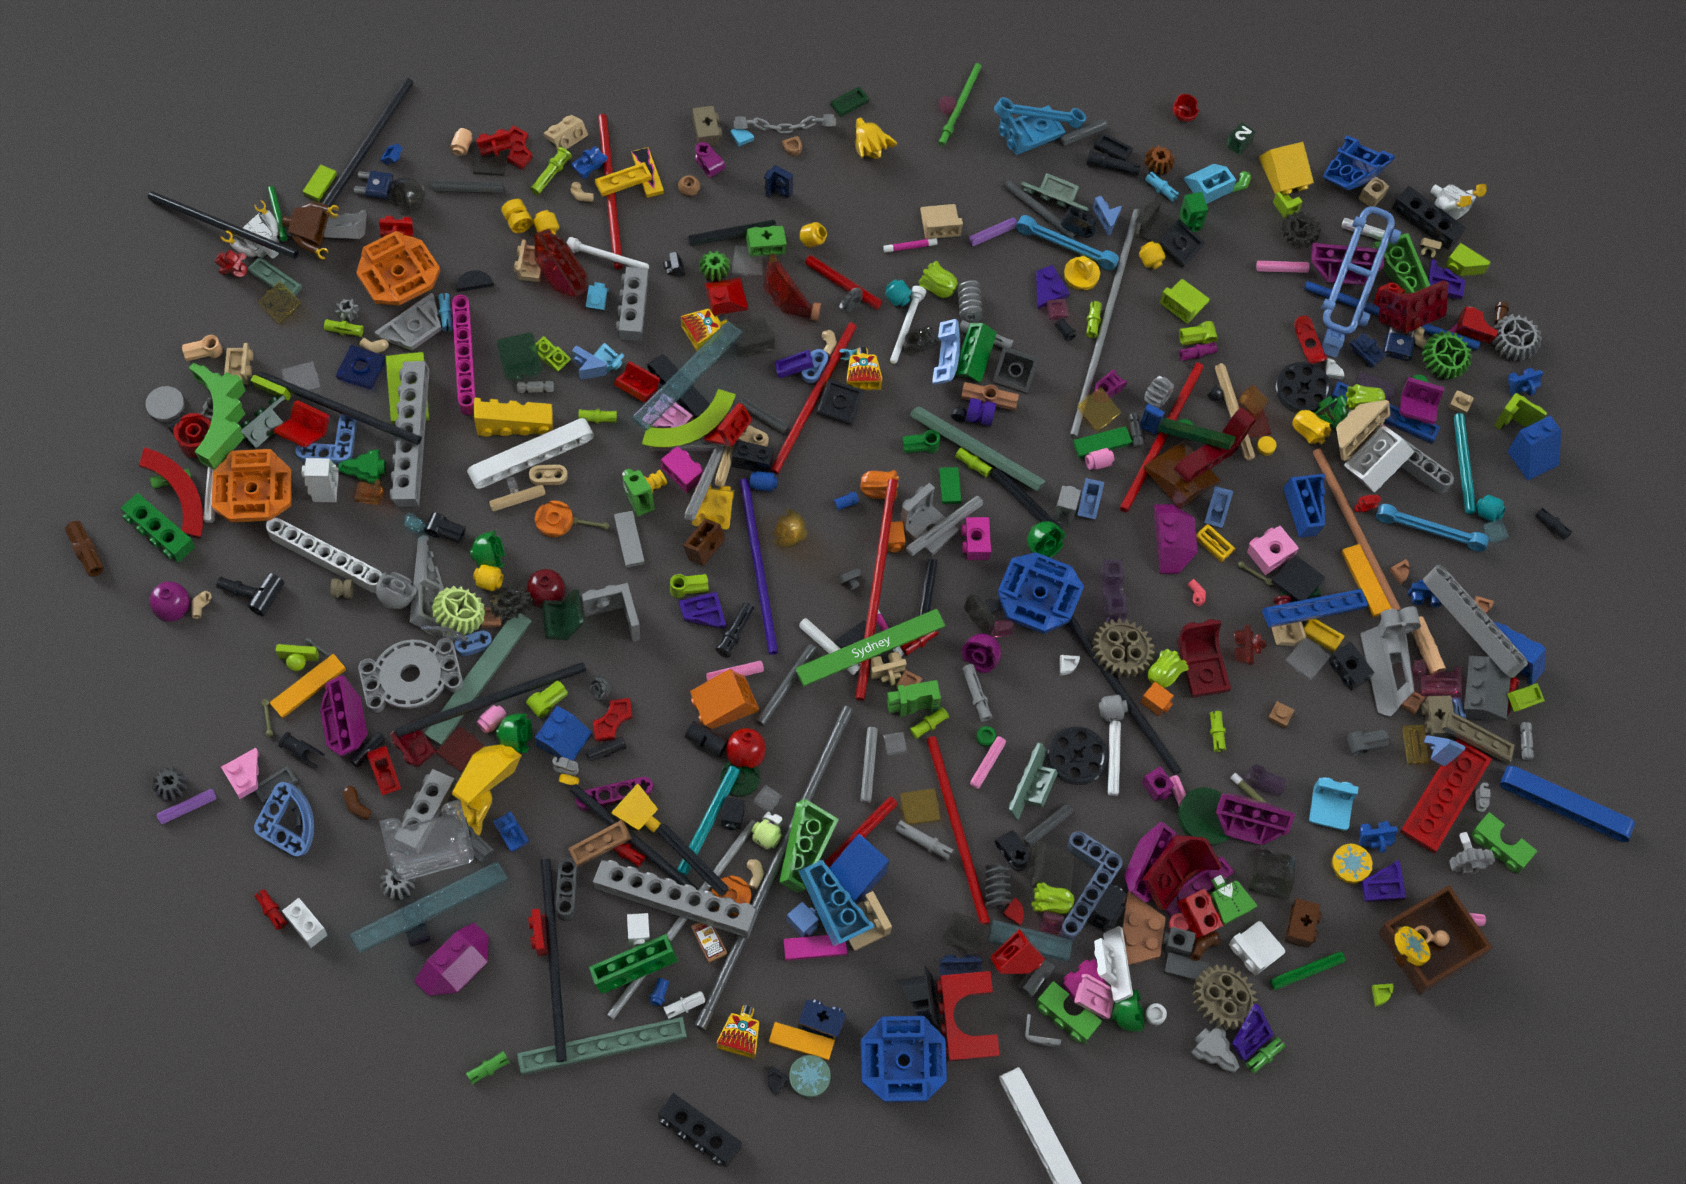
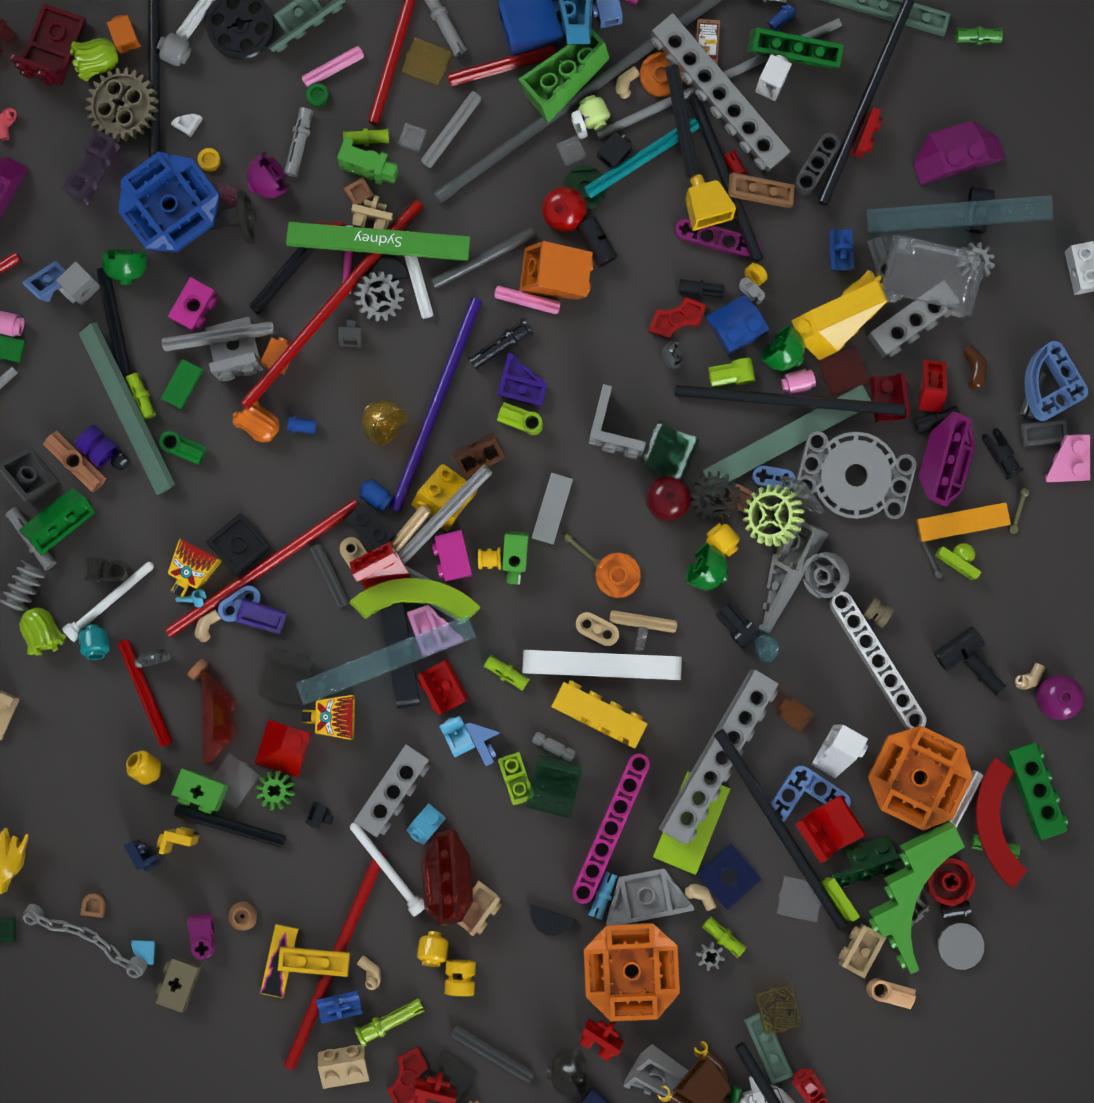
camera: 145 degrees left, 20 degrees up
(365, 466) = (784, 745): green rock -> none
(760, 202) = (180, 836): none -> yellow bracket
(846, 613) = (375, 304): none -> light grey gear
(910, 245) = (40, 699): dark pink bar -> none
(949, 352) = (87, 535): light blue slope -> none
(1034, 647) = (209, 160): none -> yellow tile

